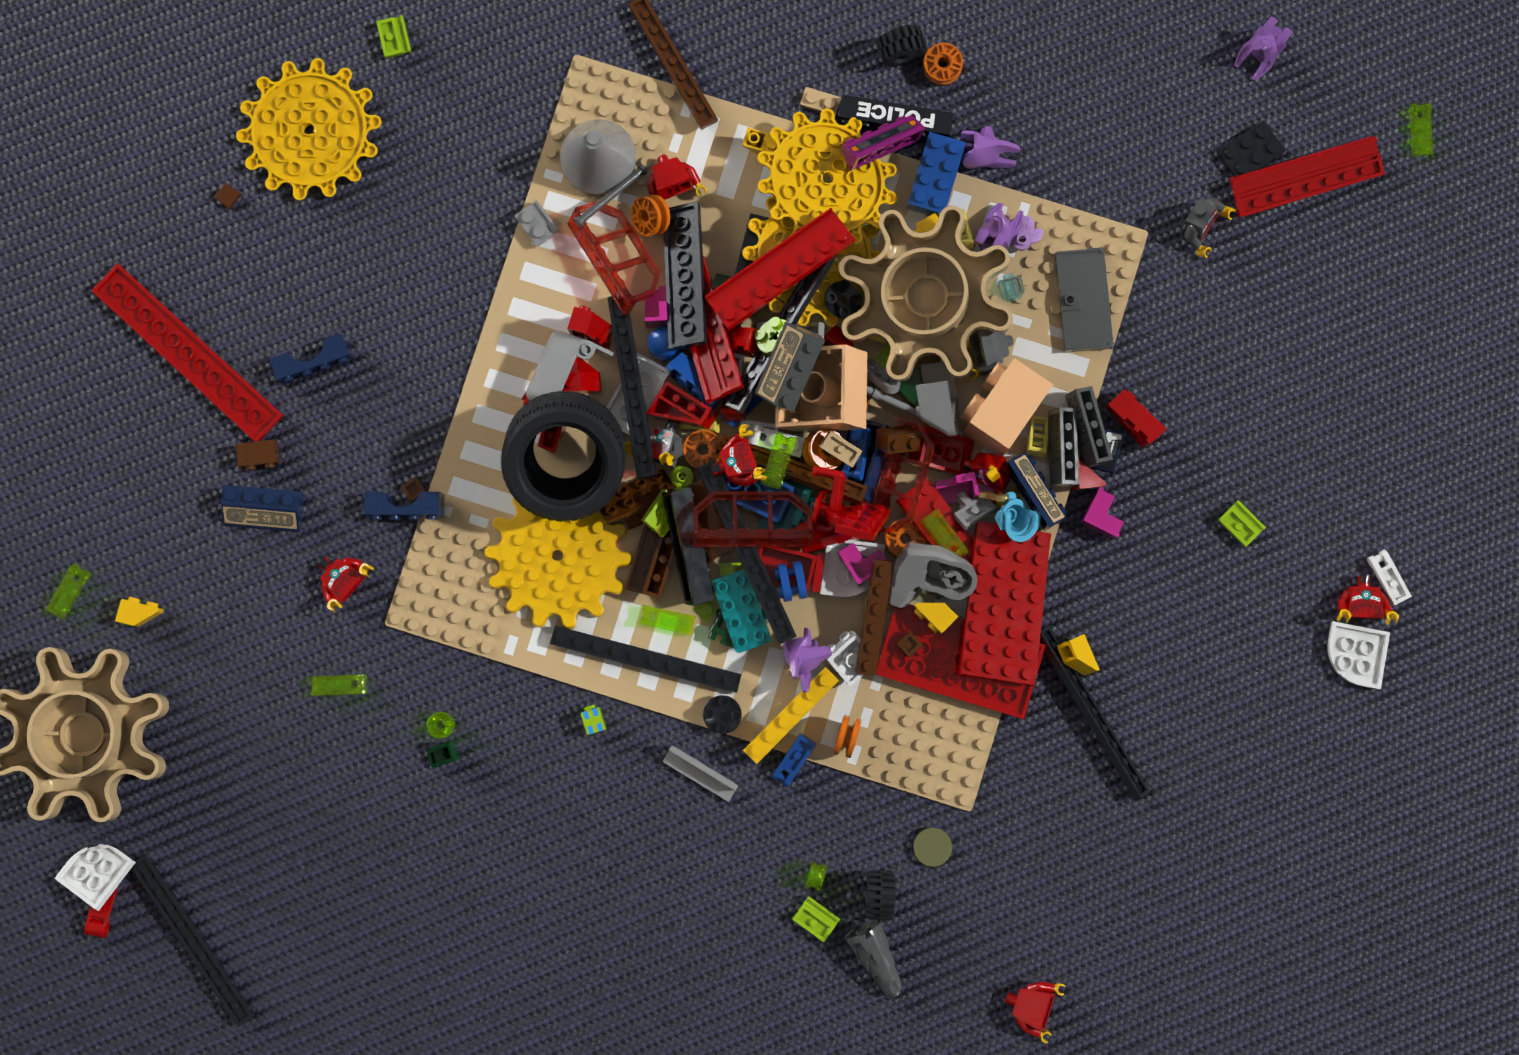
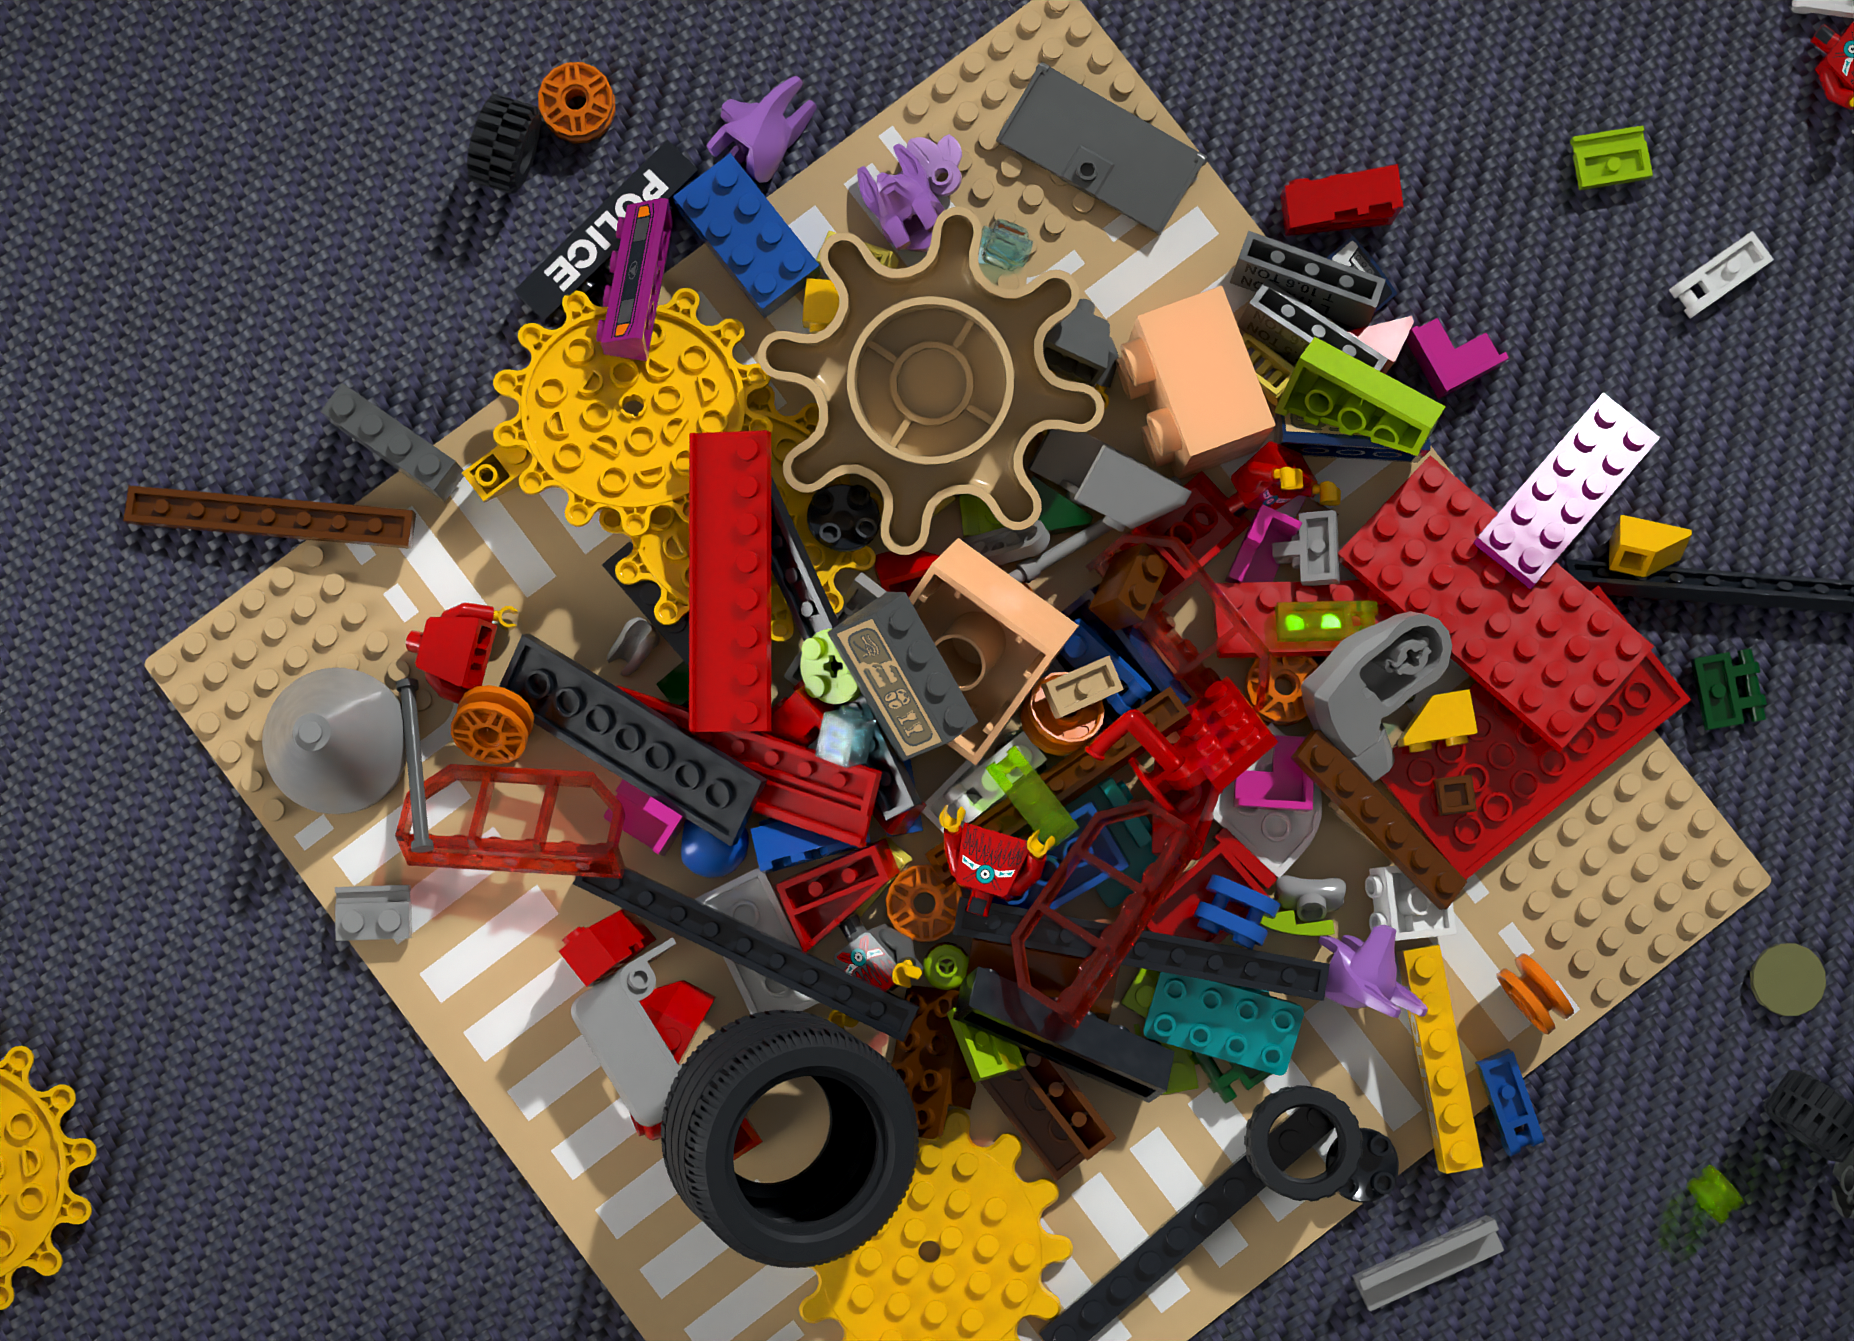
camera: 60 degrees left, 0 degrees up
(668, 620) = (1153, 1146): clear neon green plate -> none
(699, 659) = (1348, 1152): none -> black tyre
(726, 251) = (634, 644): none -> light grey piece
(740, 90) = (393, 442): none -> dark grey brick
(747, 361) = (845, 736): none -> clear light blue brick
(802, 609) = (1286, 924): none -> lime slope
(816, 919) = (1779, 1240): lime plate -> none
(819, 100) = (497, 332): tan plate -> none
(821, 613) = (1310, 896): none -> light grey piece
(1014, 517) = (1371, 492): medium azure helmet -> none
(1037, 730) = (1718, 689): none -> dark green plate
(1050, 481) = (1358, 399): none -> lime wedge
(1077, 602) = (1566, 490): none -> plate
(1224, 607) = (1722, 273): none -> white plate

